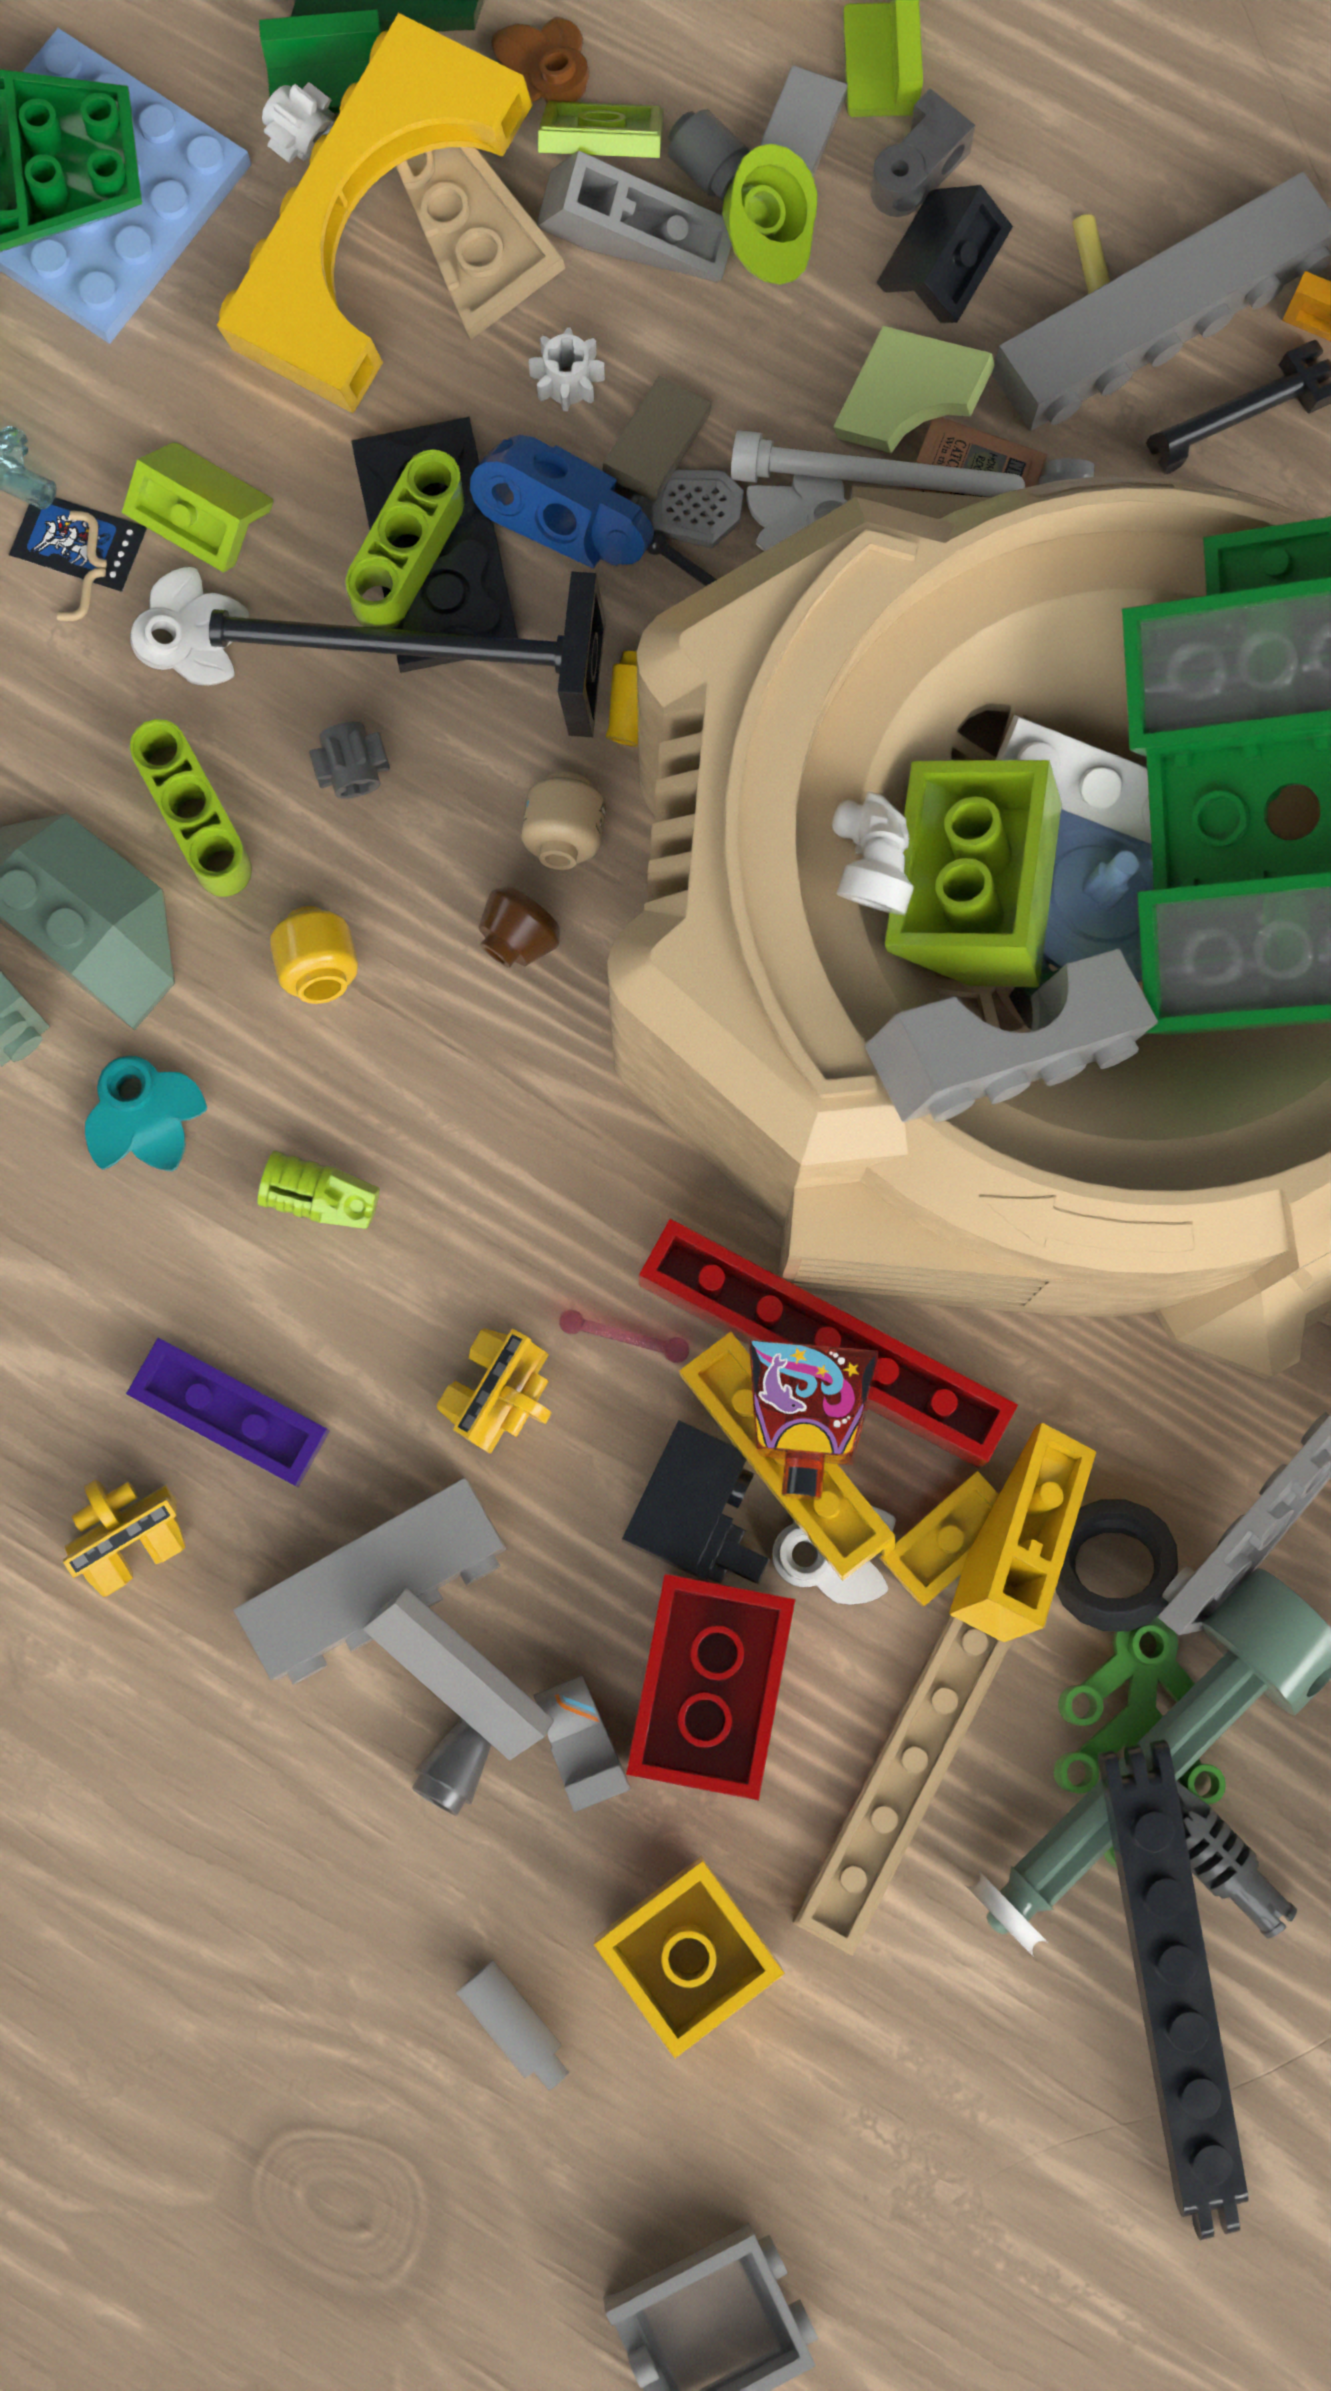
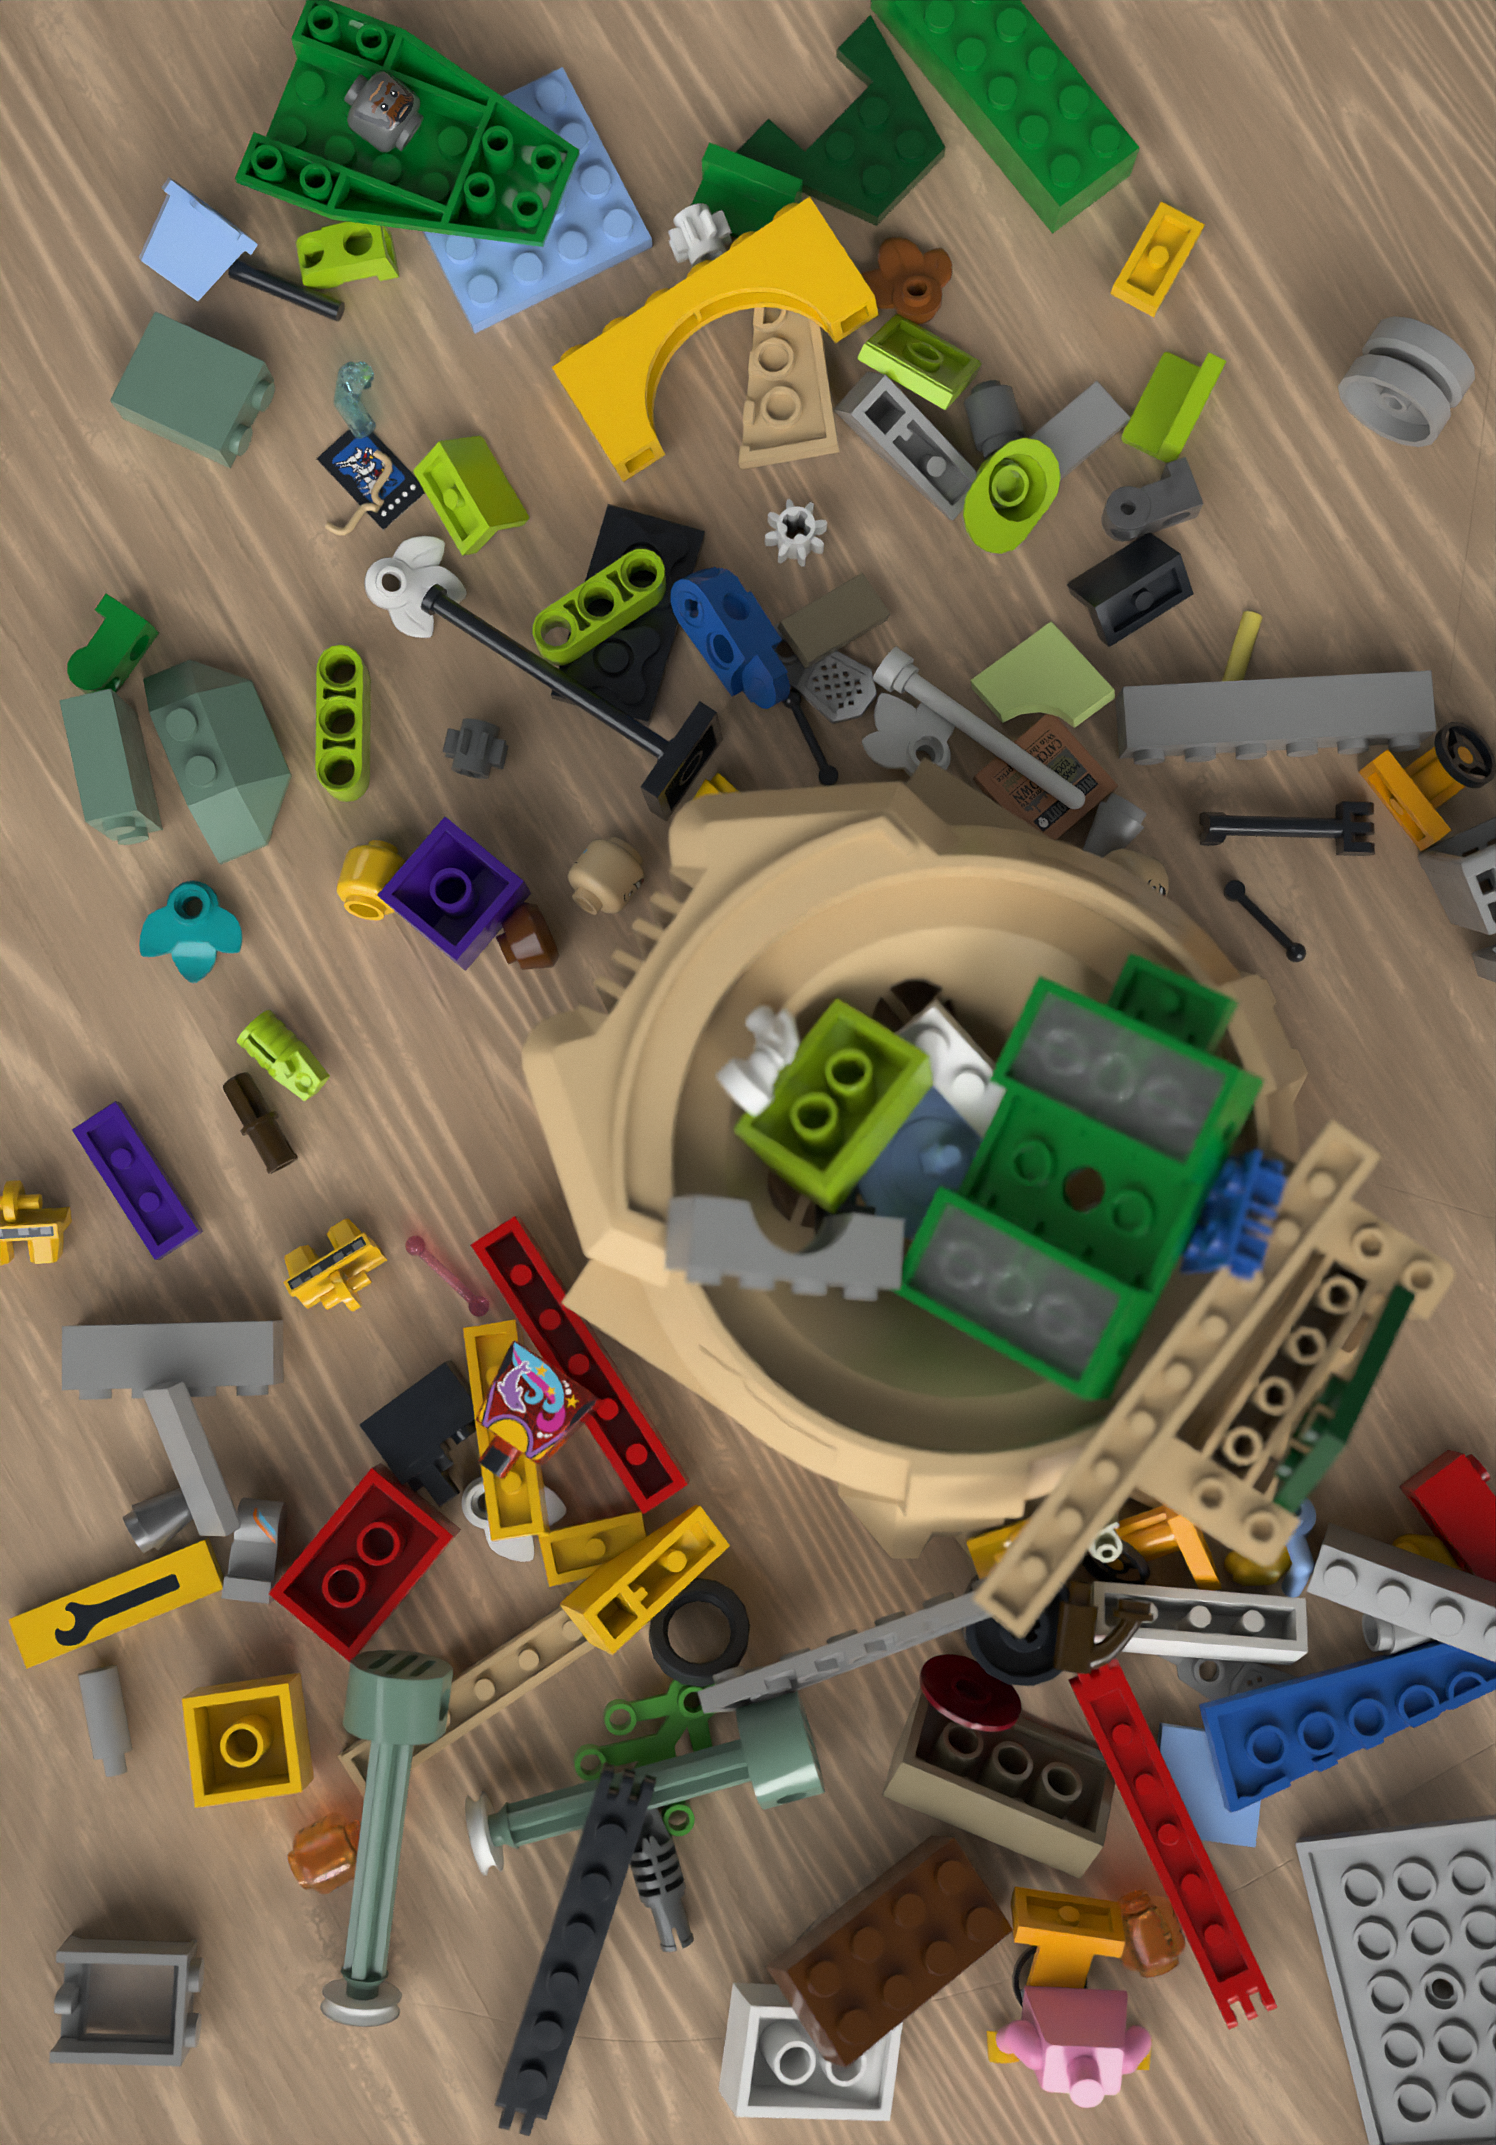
camera: 30 degrees right, 5 degrees up
(328, 1279) = (259, 1122): none -> dark brown axle
(413, 918) = (454, 893): none -> dark purple slope
(455, 1891) = (117, 1603): none -> yellow tile
(835, 1819) = (395, 1704): none -> sand green piece
(845, 2036) = (325, 1853): none -> clear orange head

